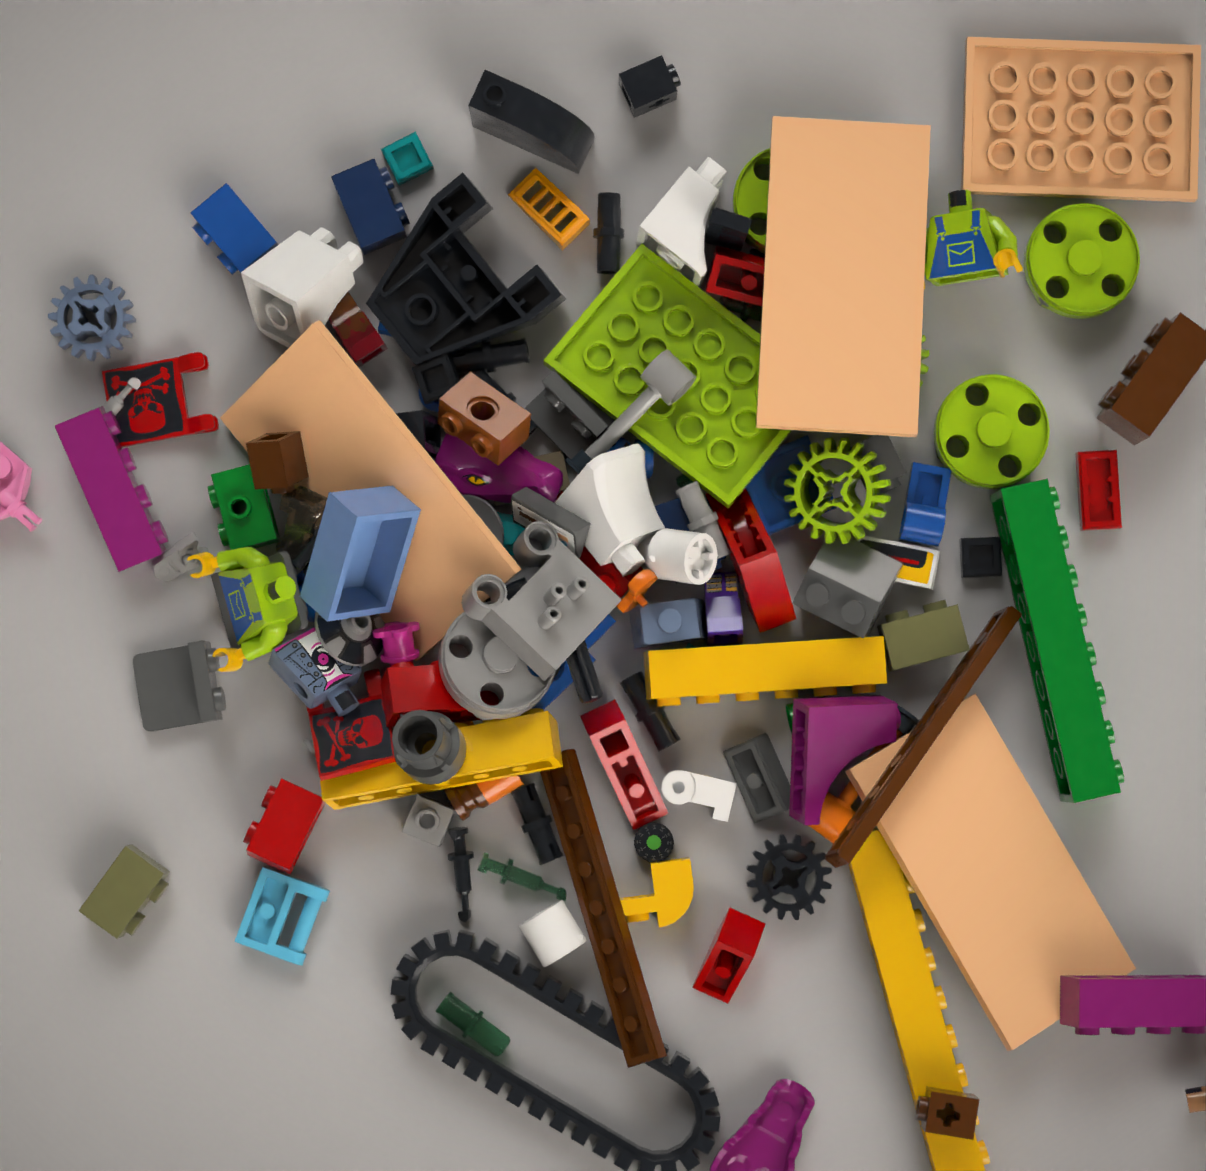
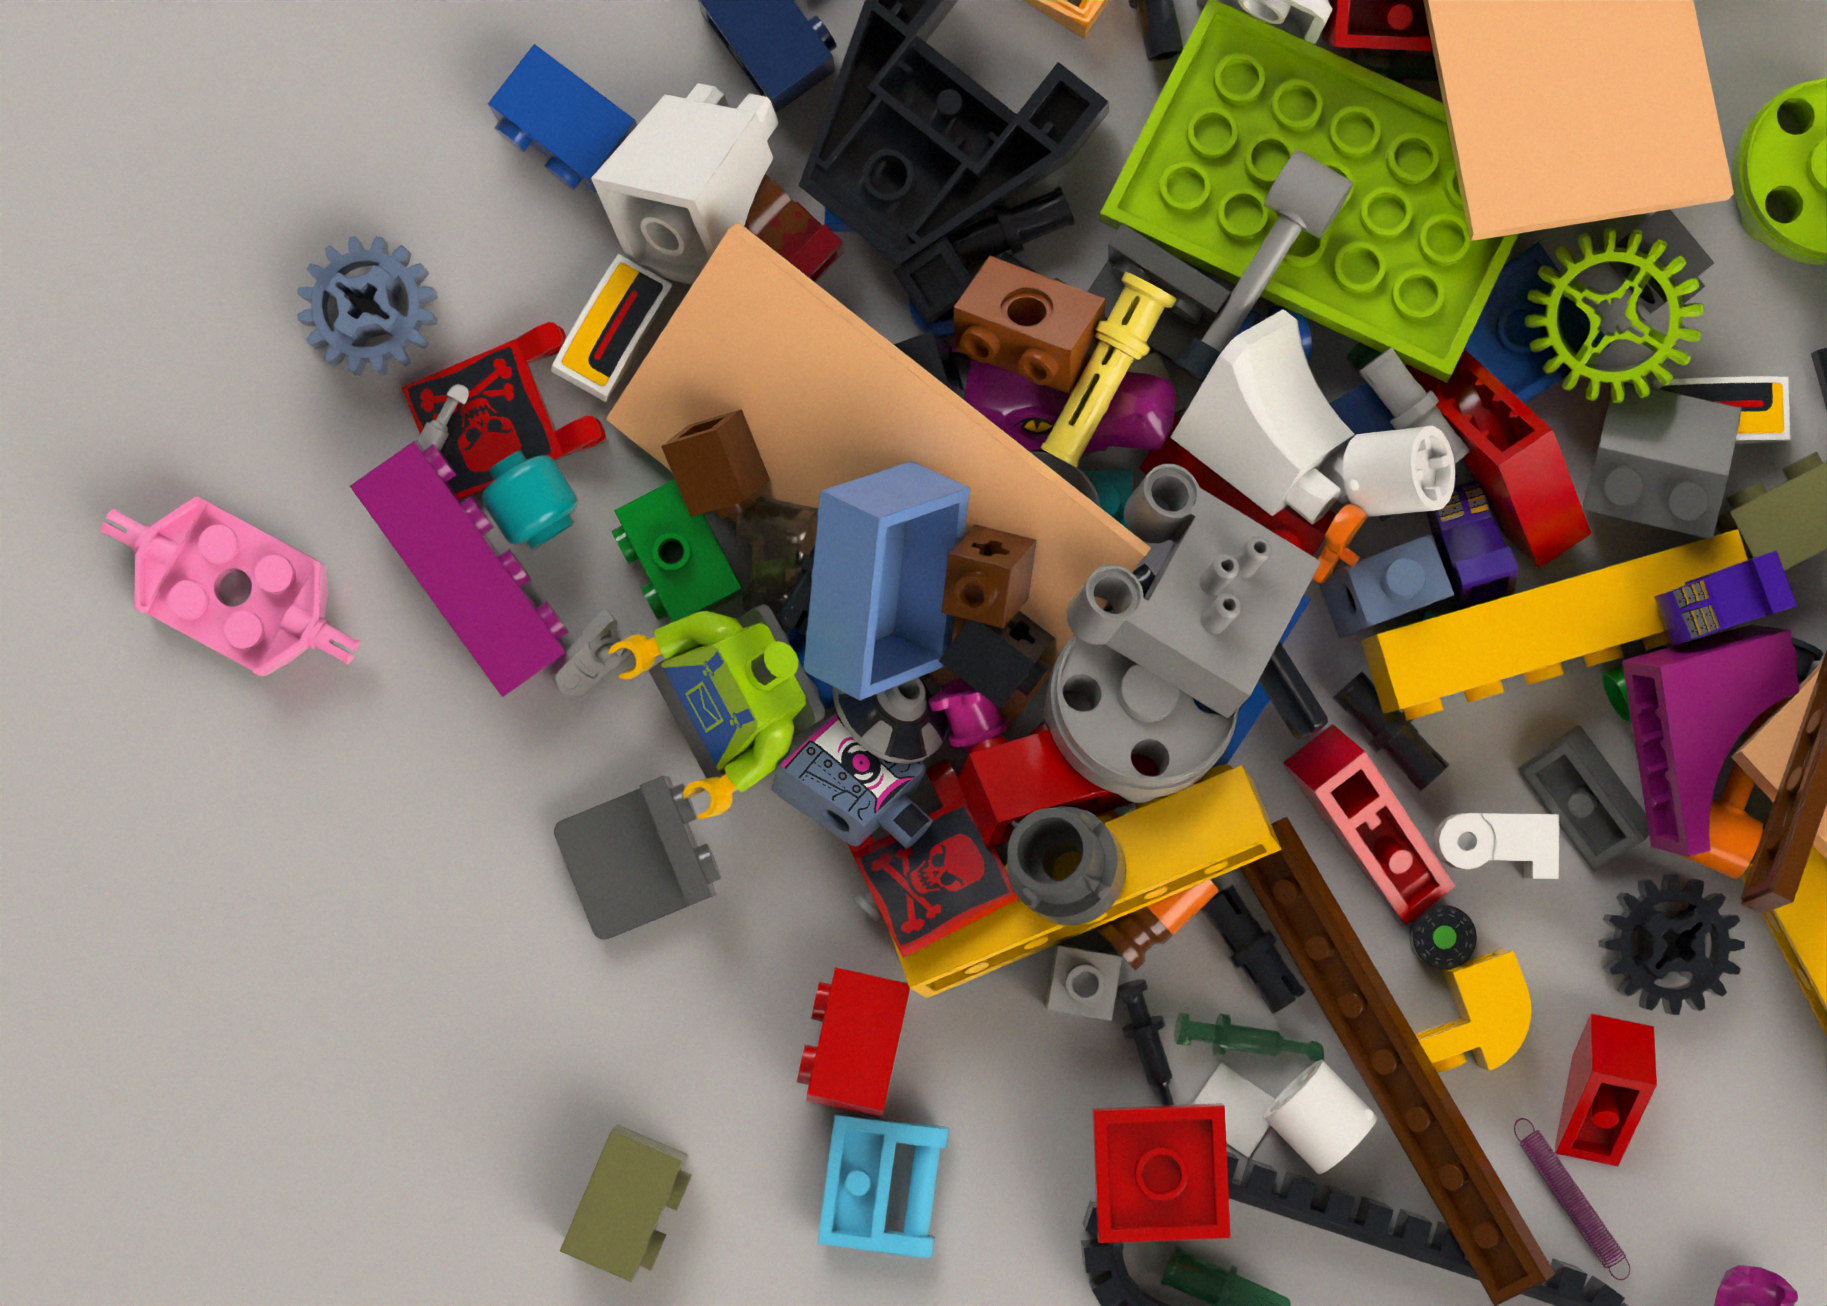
camera: 10 degrees left, 0 degrees up
(162, 456) = (529, 499): none -> teal head
(236, 363) = (611, 327): none -> slope
(418, 570) = (986, 586): none -> reddish brown brick
(420, 610) = (998, 658): none -> black brick
(446, 944) = (1161, 1173): none -> red plate
(502, 917) = (1243, 1107): none -> white sticker
(533, 507) = (1138, 448): dark grey slope -> none
(534, 441) = (1121, 340): none -> light yellow pin
(702, 1028) = (1551, 1181): none -> magenta piece
(861, 676) = (1726, 598): none -> dark purple leg
(925, 505) = (1749, 315): blue plate -> none

